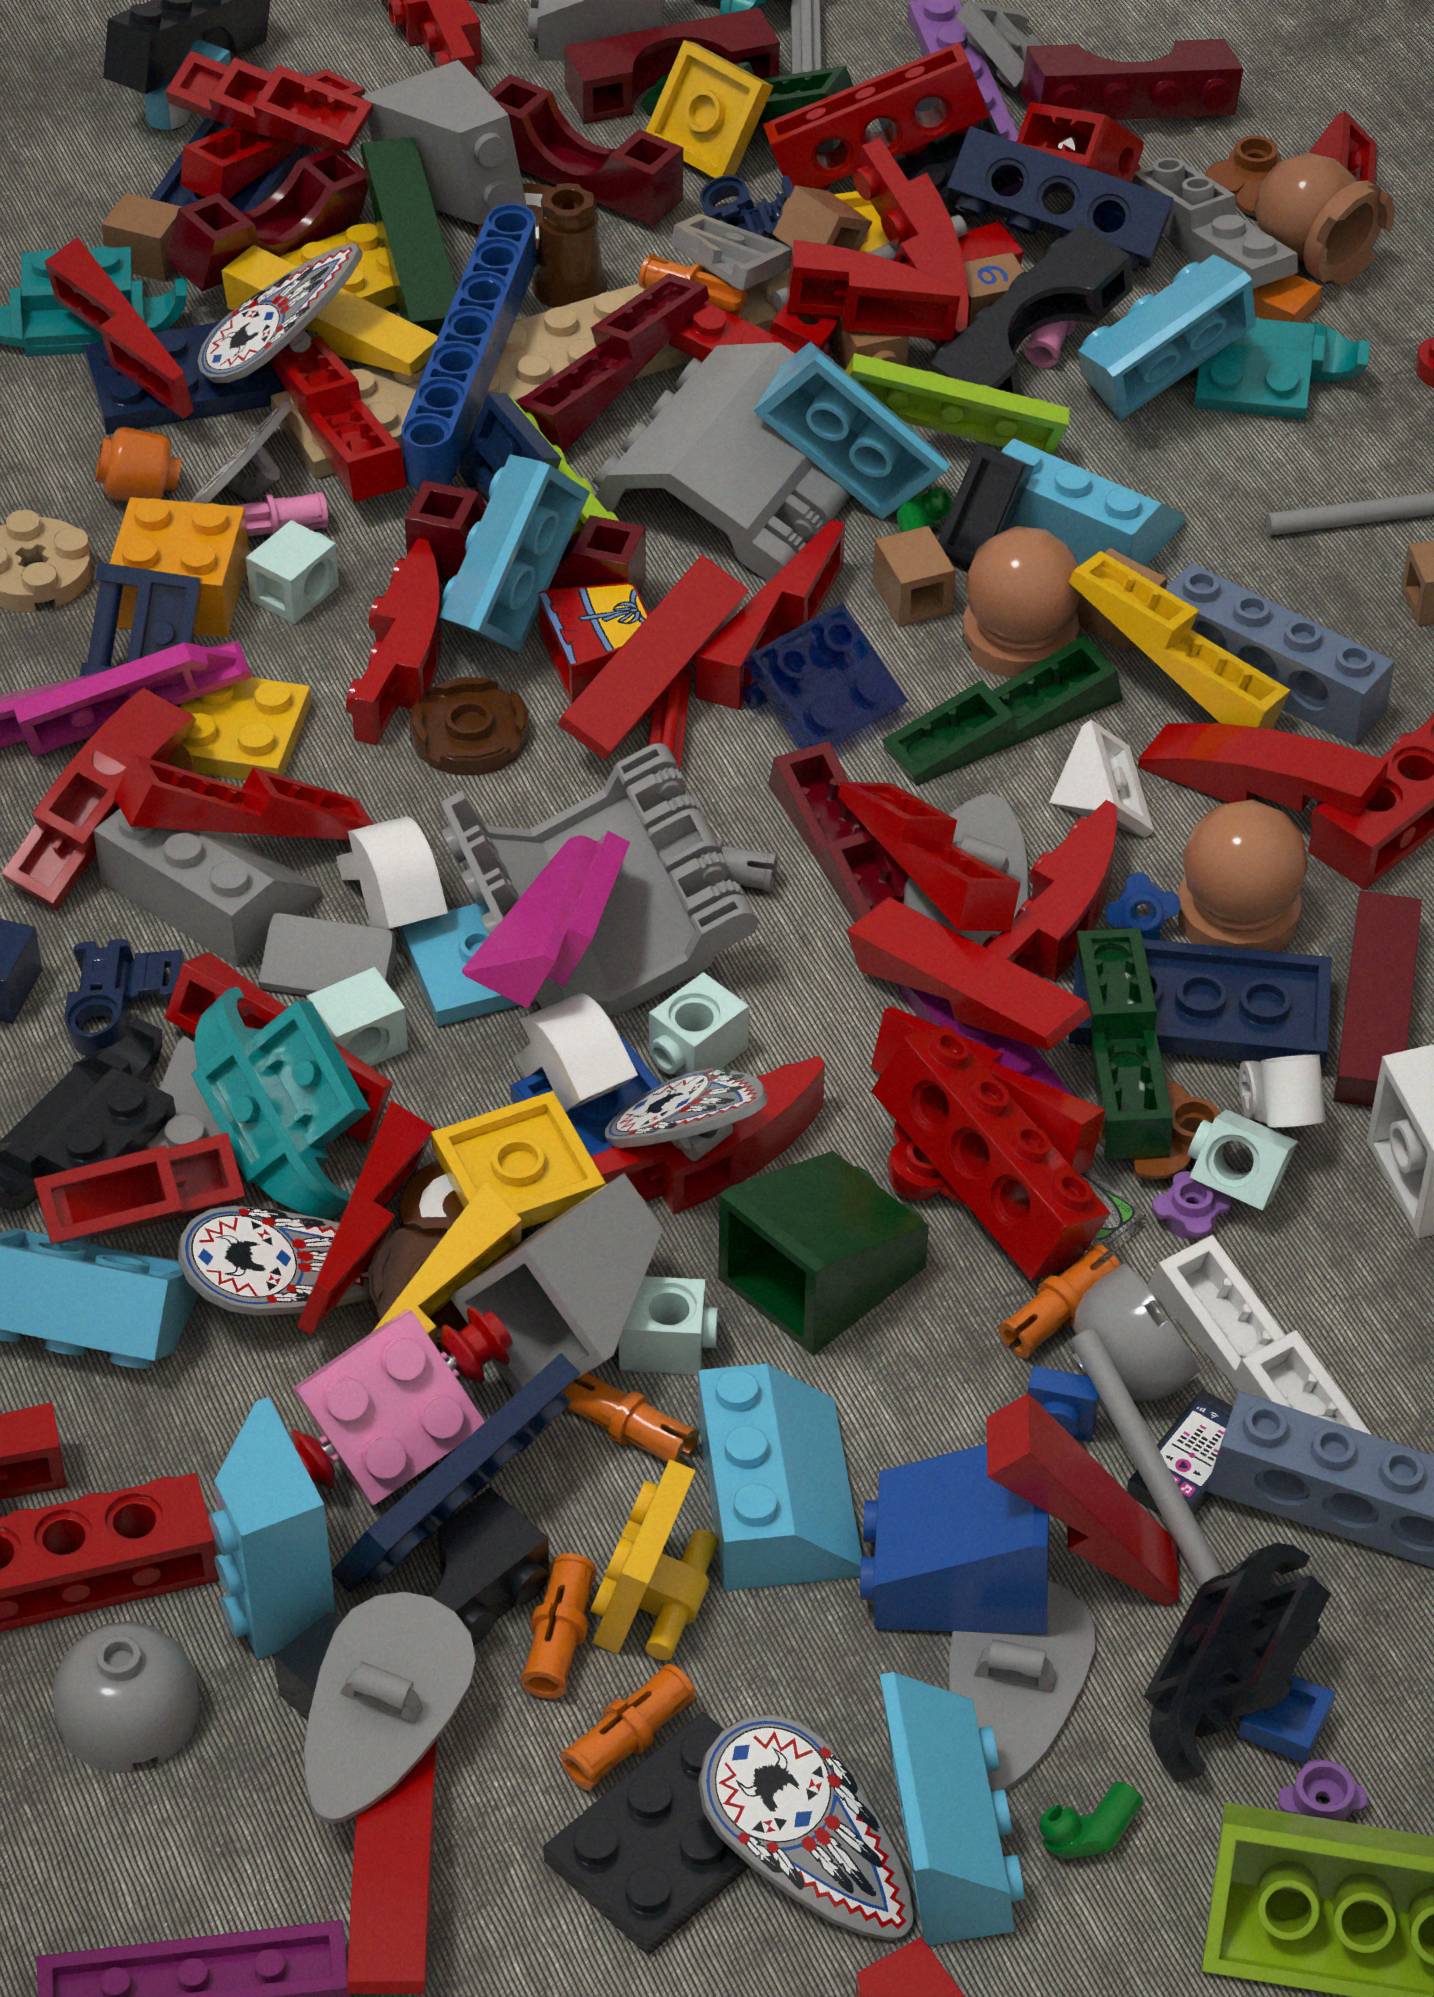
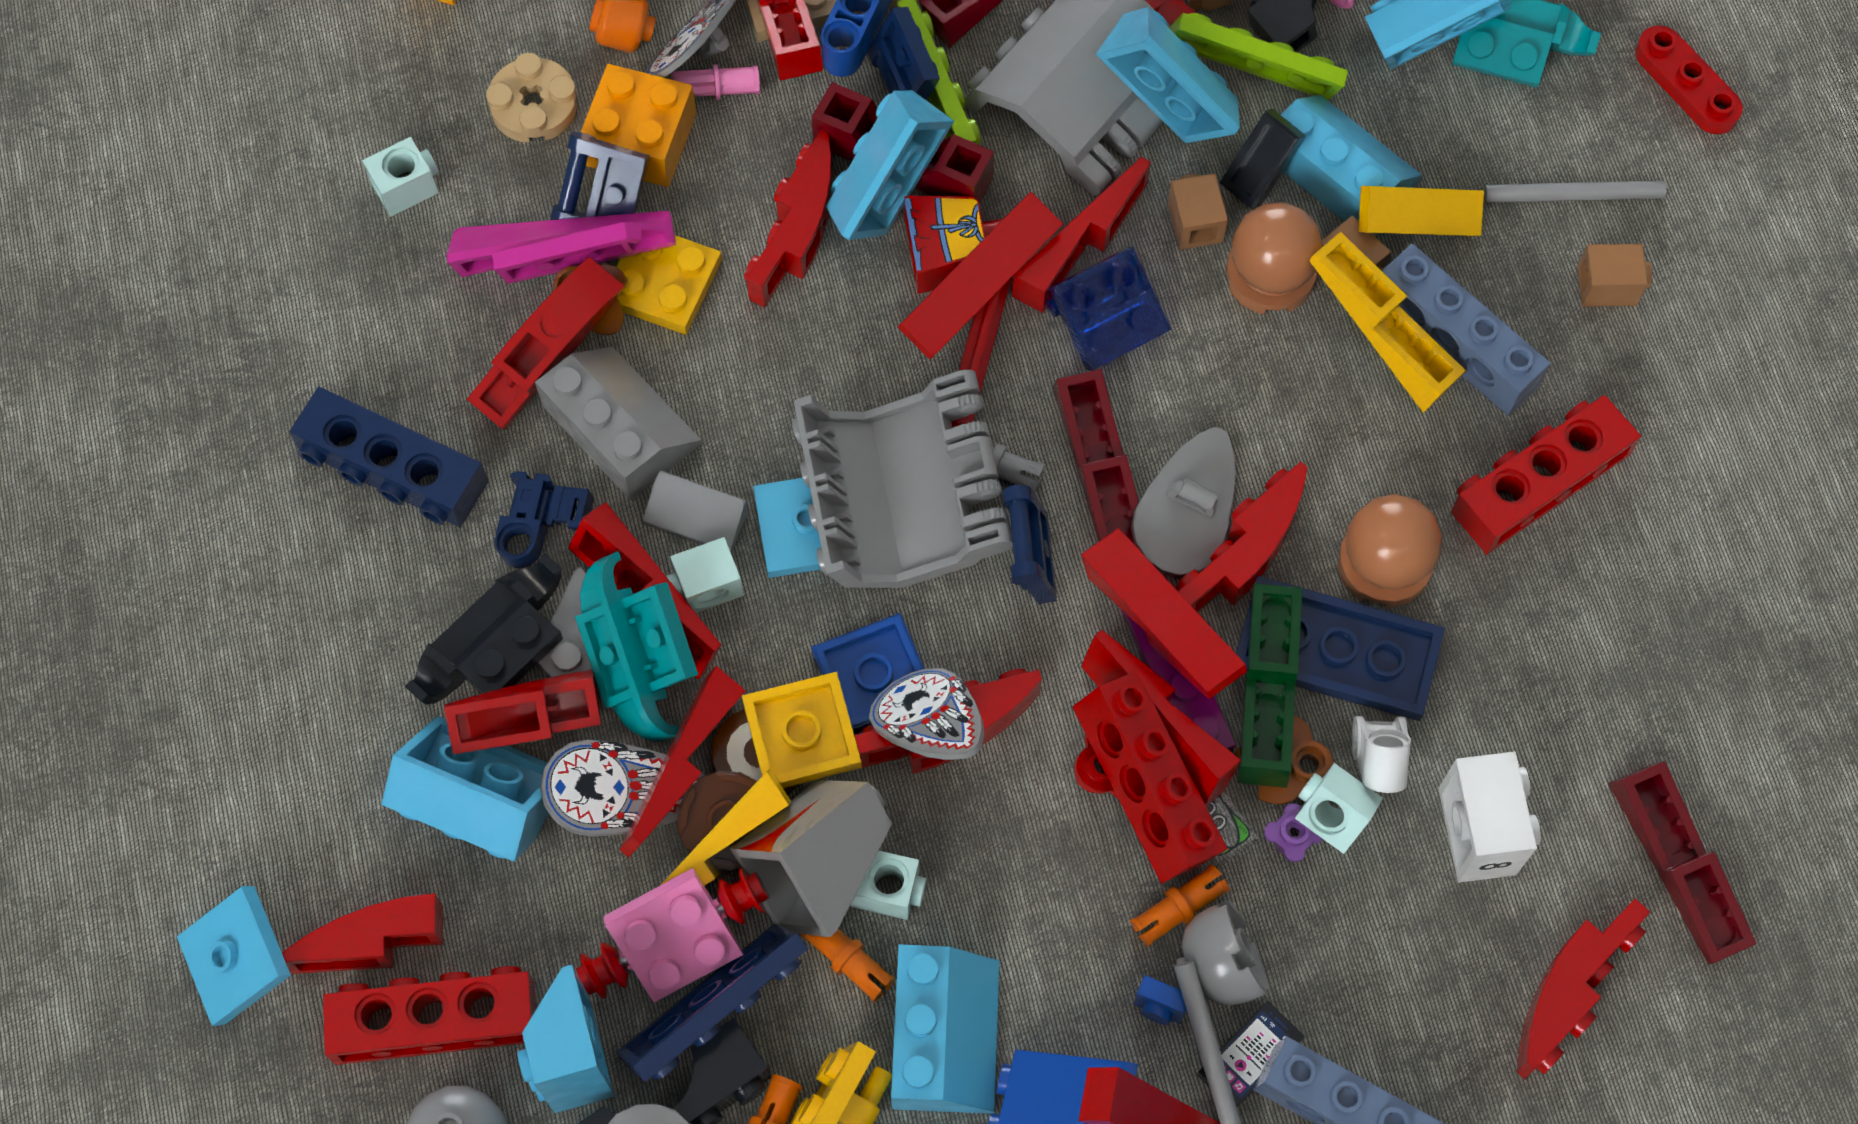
camera: 10 degrees right, 20 degrees up
(267, 804) = (670, 372): red slope -> none
(292, 571) = (724, 139): light aqua brick -> none
(394, 873) = (753, 450): white brick -> none
(469, 726) = (836, 303): reddish brown tile -> none
(550, 921) = (858, 529): dark pink wedge -> none
(576, 1051) = (859, 640): white brick -> none
(698, 1028) = (961, 603): light aqua brick -> none
(776, 928) = (1031, 543): none -> dark blue plate
(817, 1246) = (1012, 833): dark green slope -> none
(922, 843) = (1150, 477): red slope -> none
(924, 510) = (1214, 150): green arm -> none
(988, 721) = (1240, 353): dark green slope -> none
(1099, 771) = (1306, 429): white slope -> none
(1139, 891) = (1311, 546): blue plate -> none
(1194, 534) = (1420, 211): none -> yellow tile
(1241, 1336) = (1316, 974): white slope -> none
(1264, 762) = (1431, 438): red slope -> none
(1377, 992) = (1473, 666): dark red slope -> none

